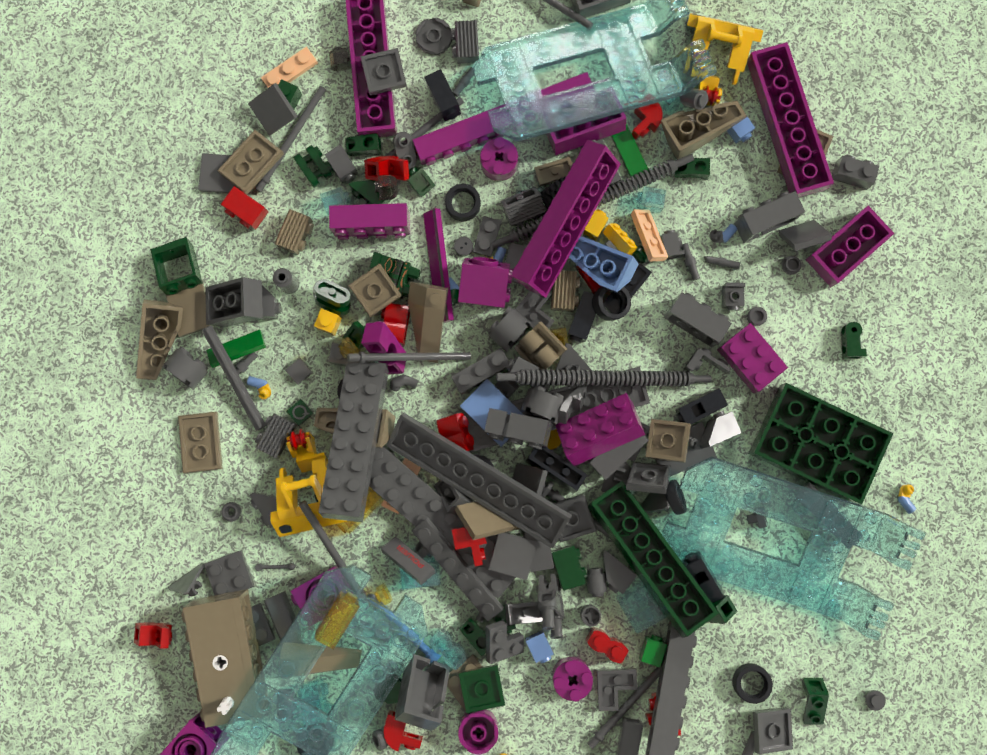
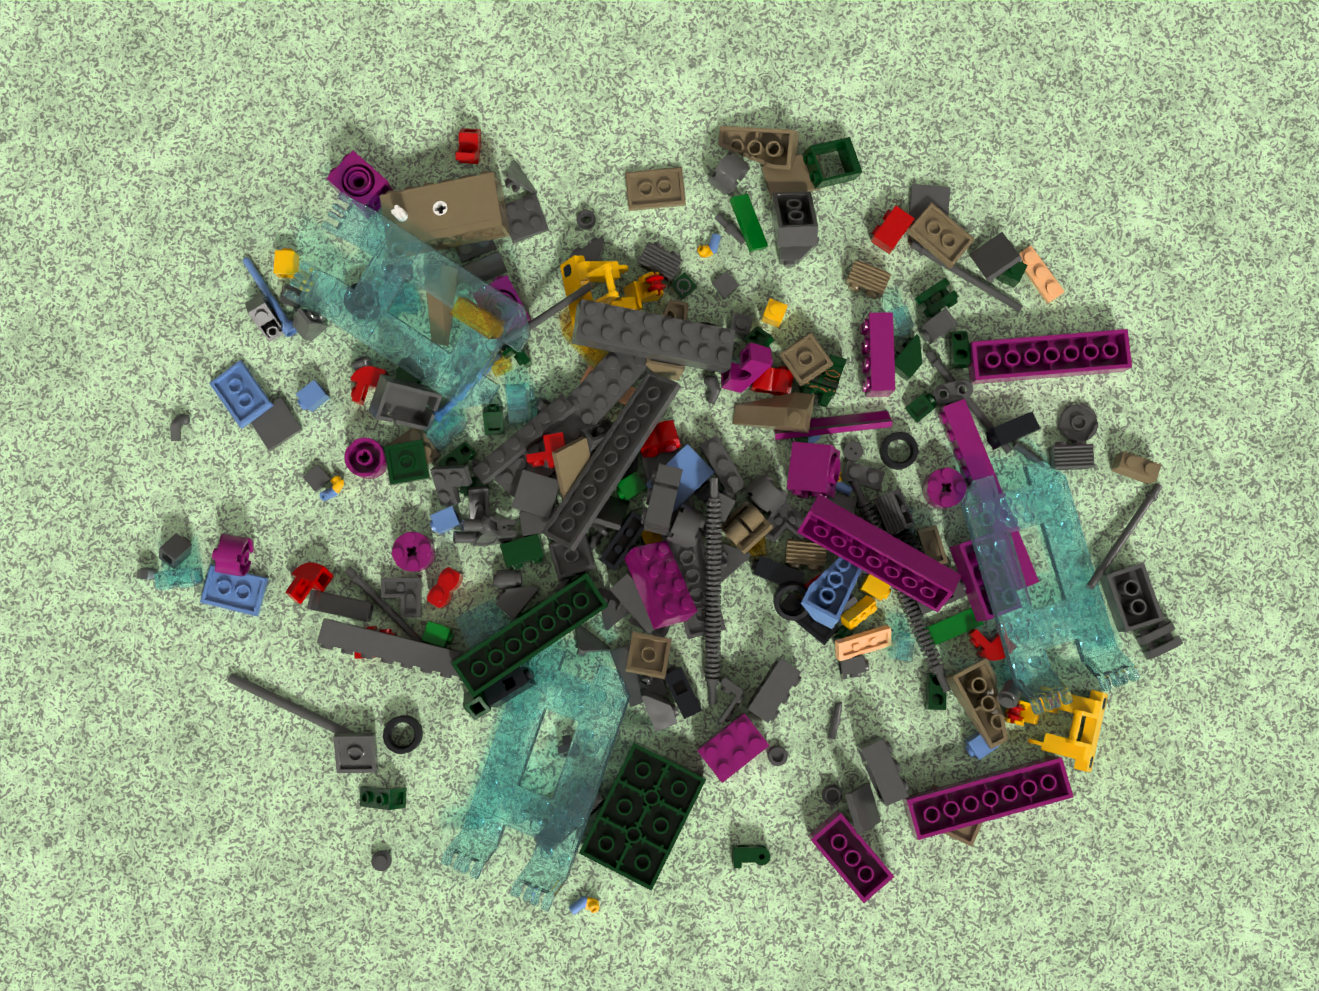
camera: 90 degrees right, 0 degrees up
(233, 377) = (718, 220): dark grey axle -> none
(258, 567) = (531, 247): dark grey hinge -> none
(285, 280) = (816, 270): dark grey brick -> none
(332, 297) = (799, 317): dark green brick -> none
(340, 59) = (1051, 325): clear smoke plate -> none
(347, 347) = (744, 331): clear yellow plate -> none
(362, 356) = (736, 343): dark grey bar -> none
(375, 574) = (521, 357): none -> dark green bracket
(383, 71) = (1035, 368): dark grey plate -> none
(386, 166) = (934, 370): red brick -> none
(386, 187) = (912, 371): clear smoke plate -> none
(408, 560) = (533, 391): dark grey tile -> none
(436, 600) = (493, 419): none -> dark green bracket
(502, 460) = (630, 487): none -> green brick
(573, 402) = (690, 559): dark grey slope -> none
(590, 618) = (472, 574): dark grey wheel -> none
(649, 477) = (610, 634): dark grey tile -> none
(676, 498) = (590, 660): black tyre -> none
(690, 262) = (835, 686): dark grey bar -> none
(723, 236) = (862, 722): arm -> none
(727, 300) = (806, 727): dark grey brick -> none
(855, 172) = (932, 867): dark grey brick -> none

